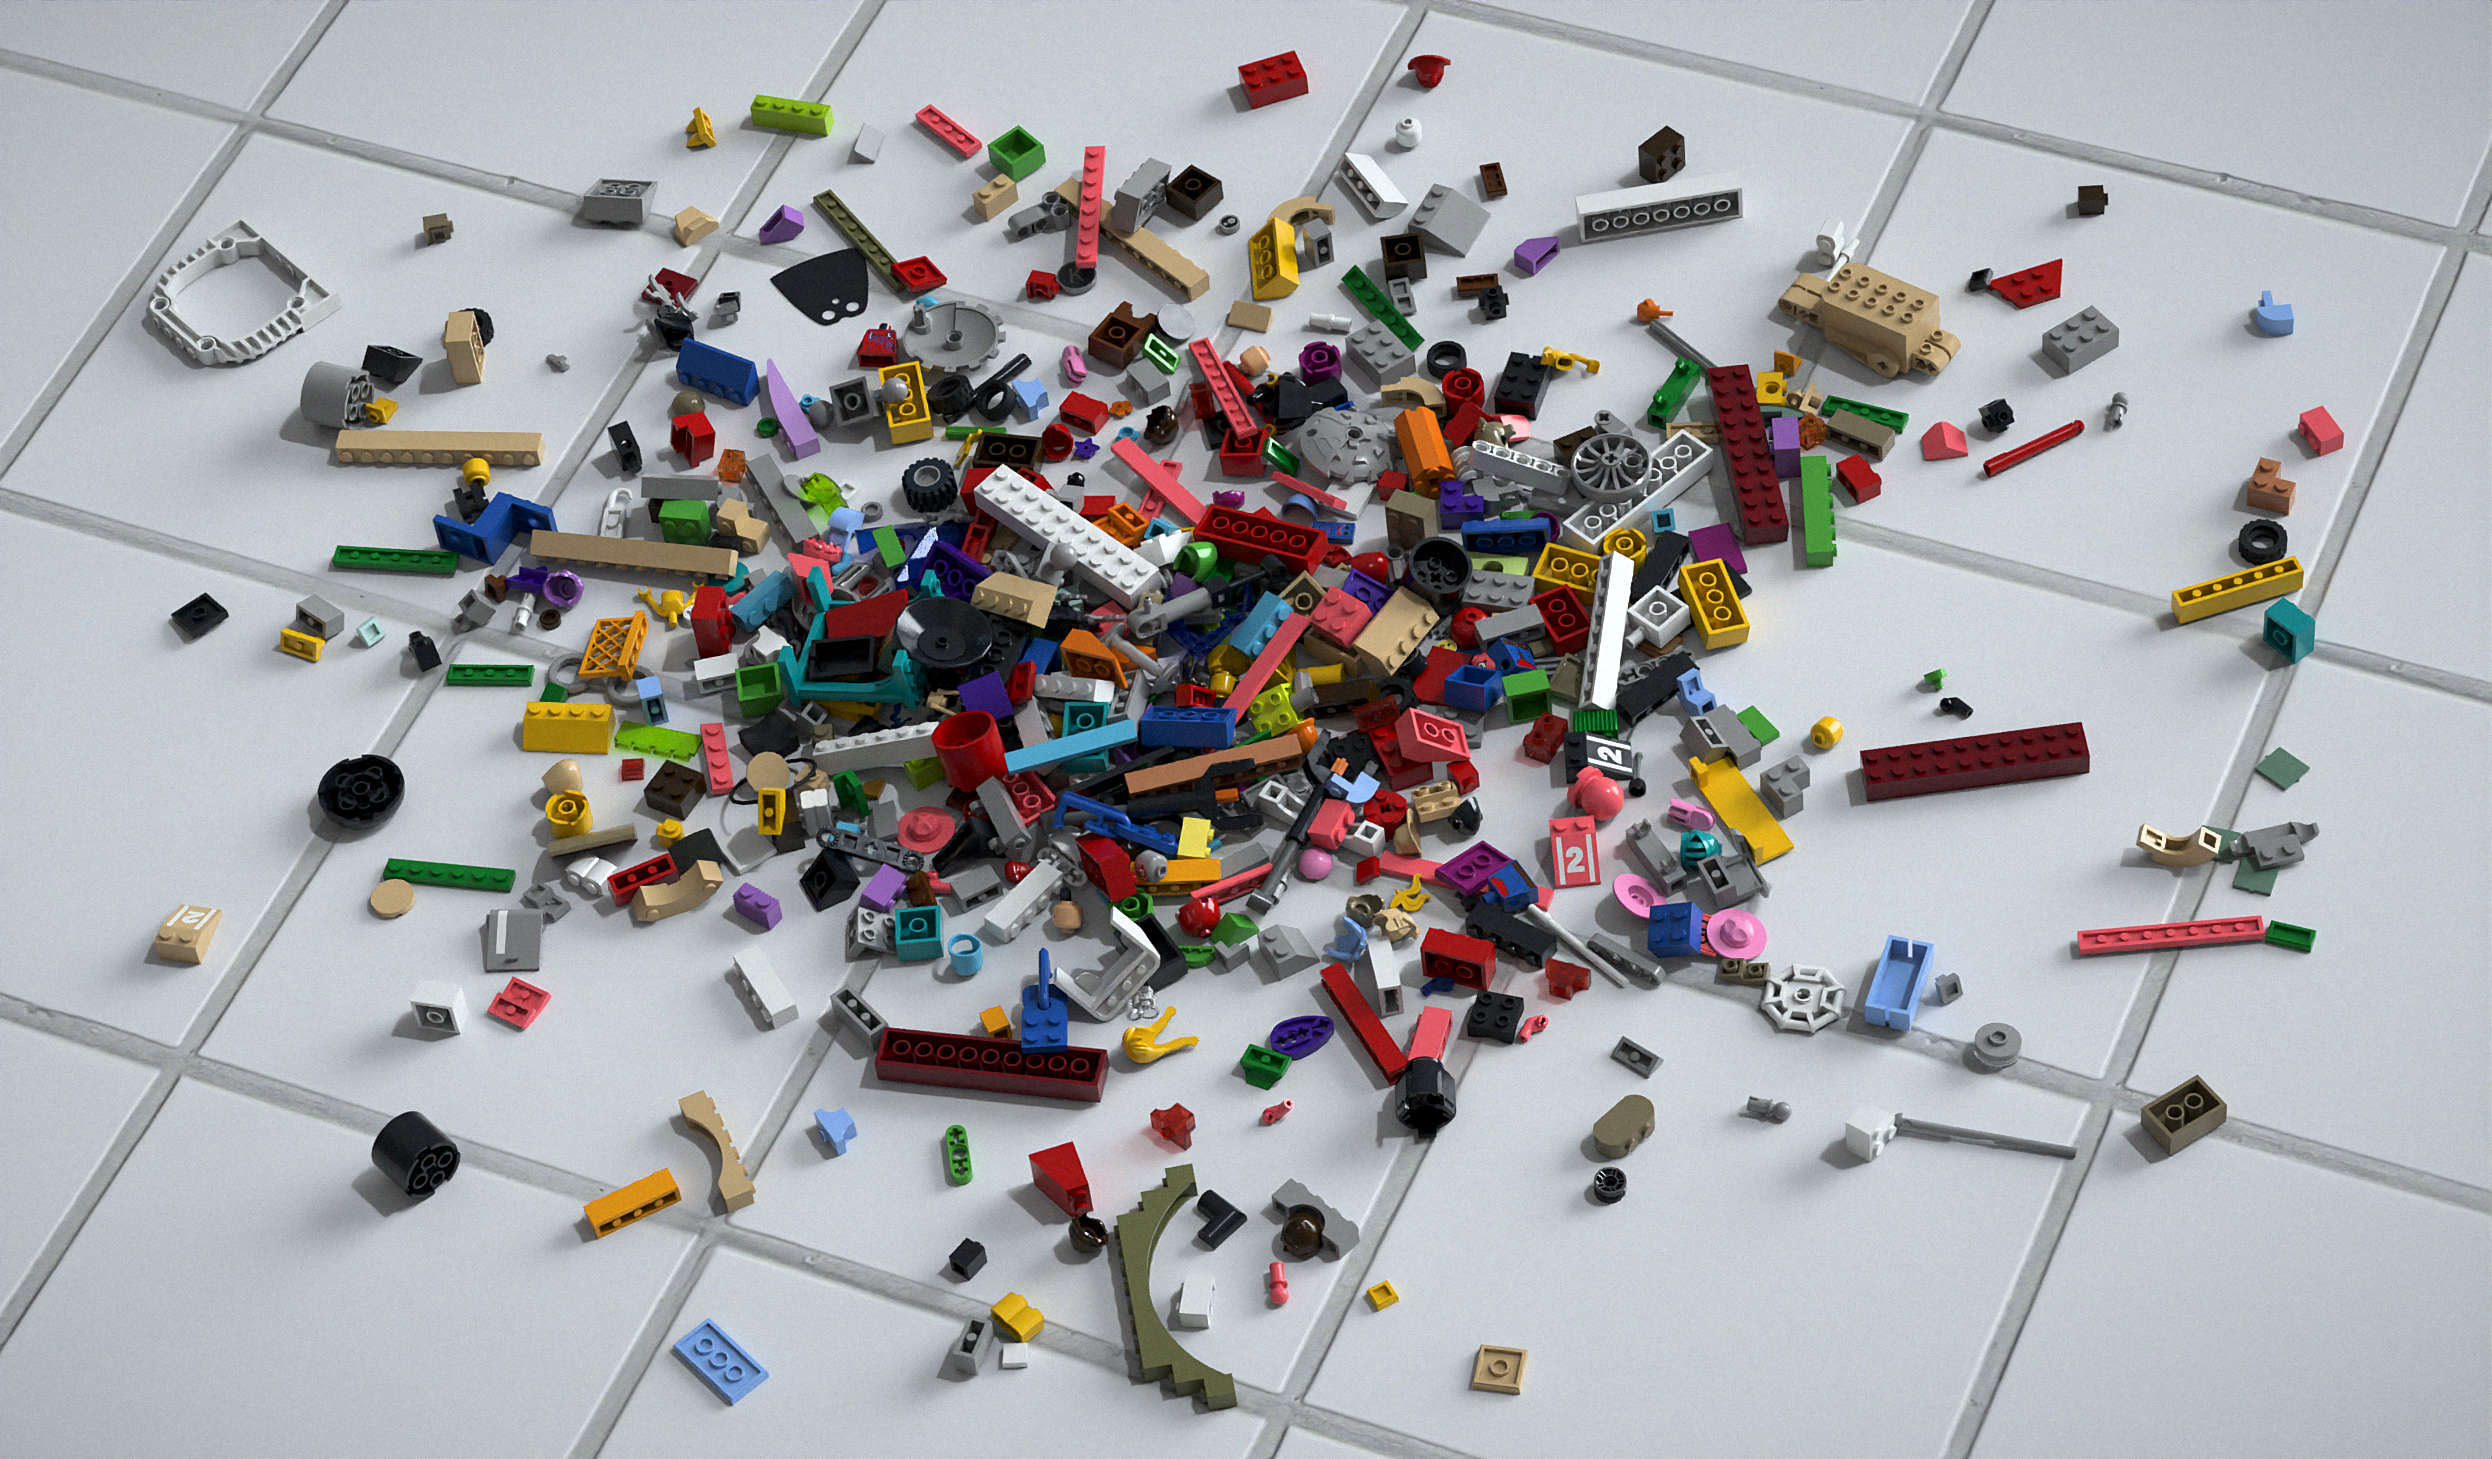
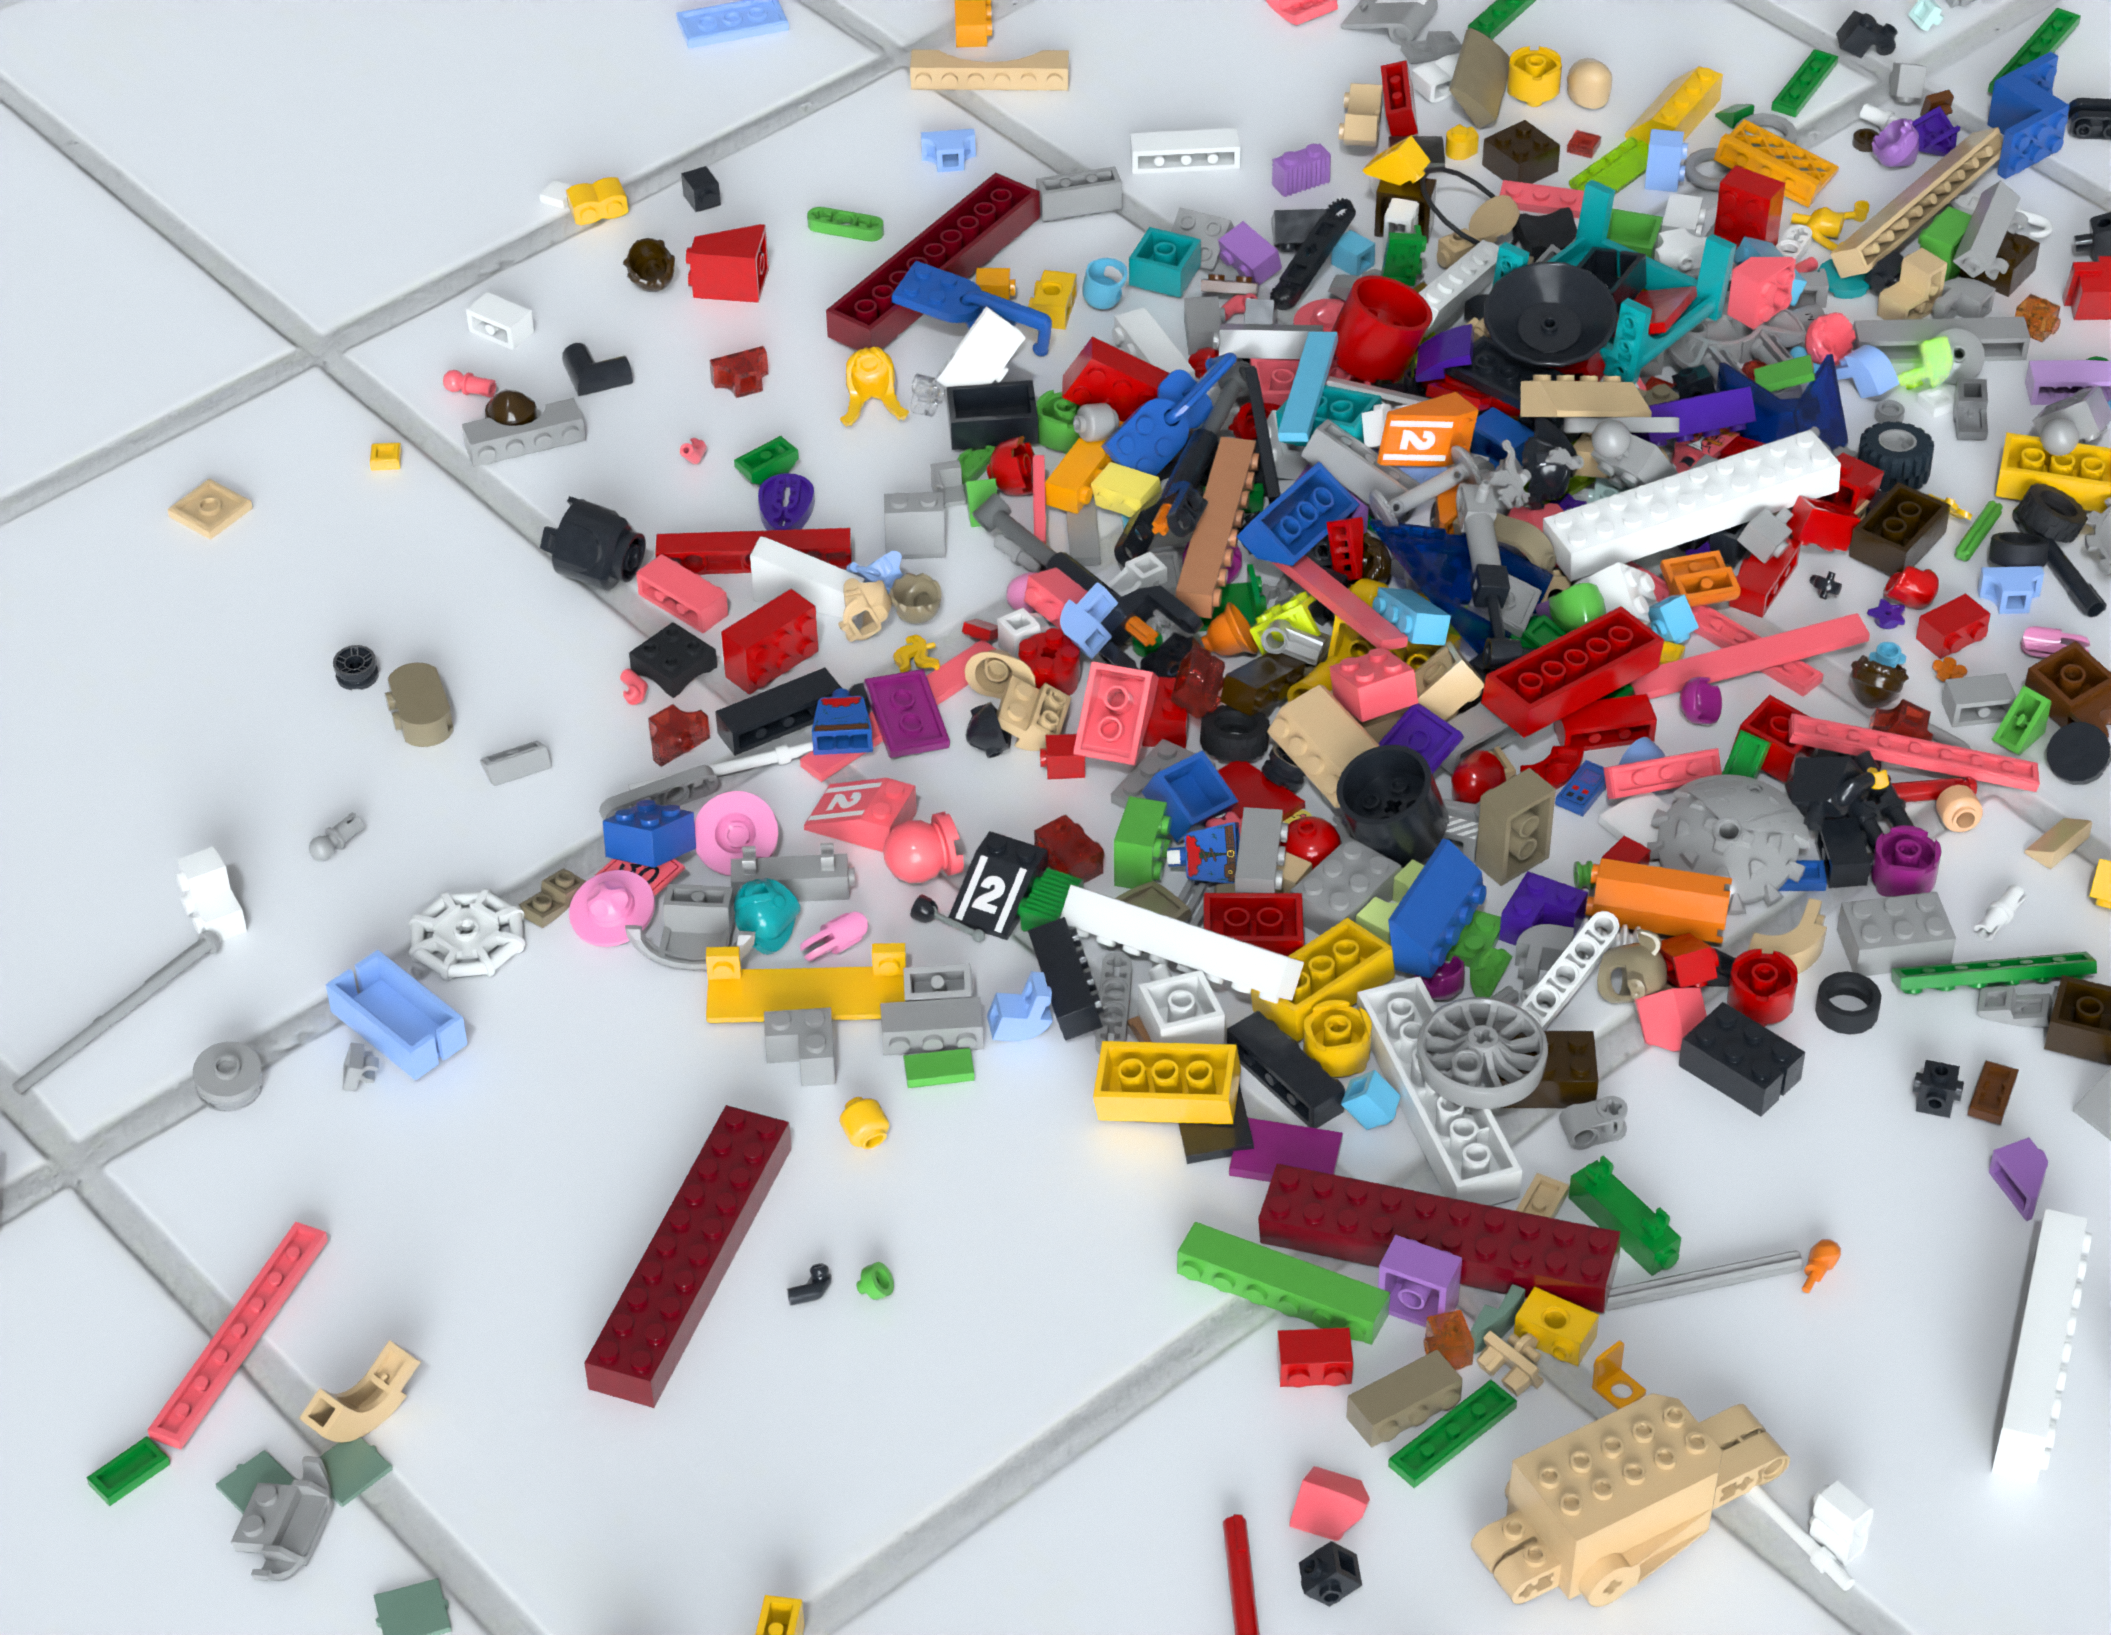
camera: 110 degrees right, 5 degrees down
(855, 465) = (1970, 408): none -> flat silver brick
(973, 1344) = (585, 156): light grey brick -> none
(991, 984) = (1055, 296): none -> yellow brick
(1159, 1351) = (467, 277): olive arch -> none
(1564, 361) = (1771, 1115): yellow piece -> none

